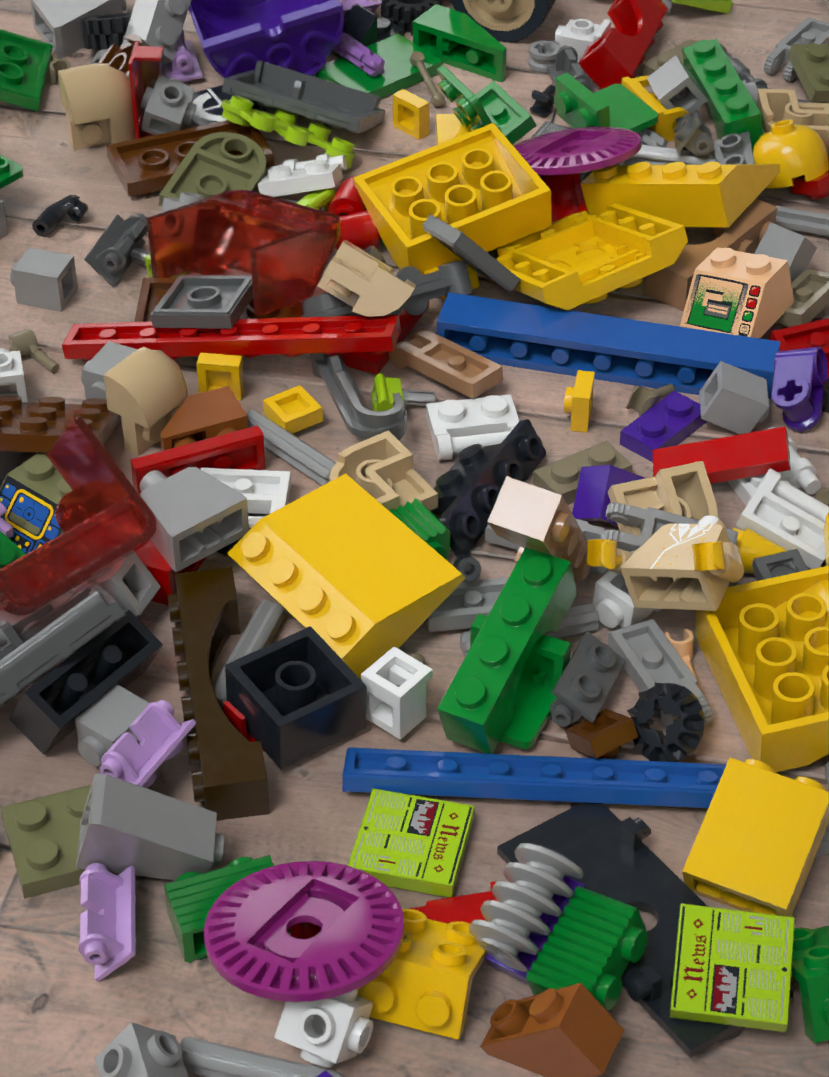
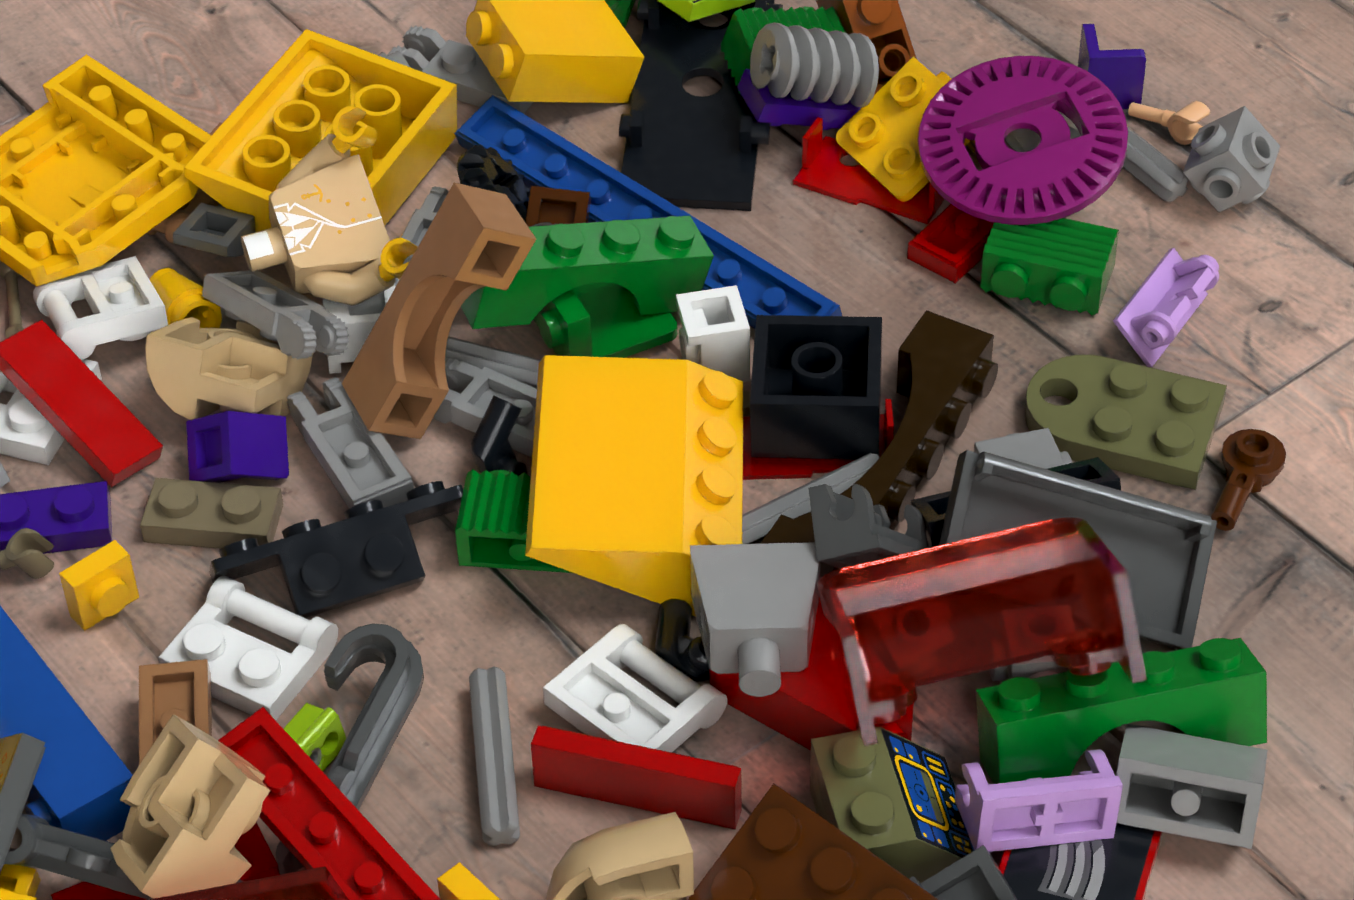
camera: 140 degrees left, 5 degrees up
(145, 830) = (1097, 311): light grey slope -> none
(154, 572) = (858, 532): none -> dark grey hinge
(159, 741) = (1020, 404): lavender hinge -> none
(204, 417) = (563, 810): dark orange slope -> none
(293, 409) = (436, 801): yellow plate -> none
(385, 472) = (472, 585): tan brick -> none
(413, 841) = (825, 241): lime tile -> none

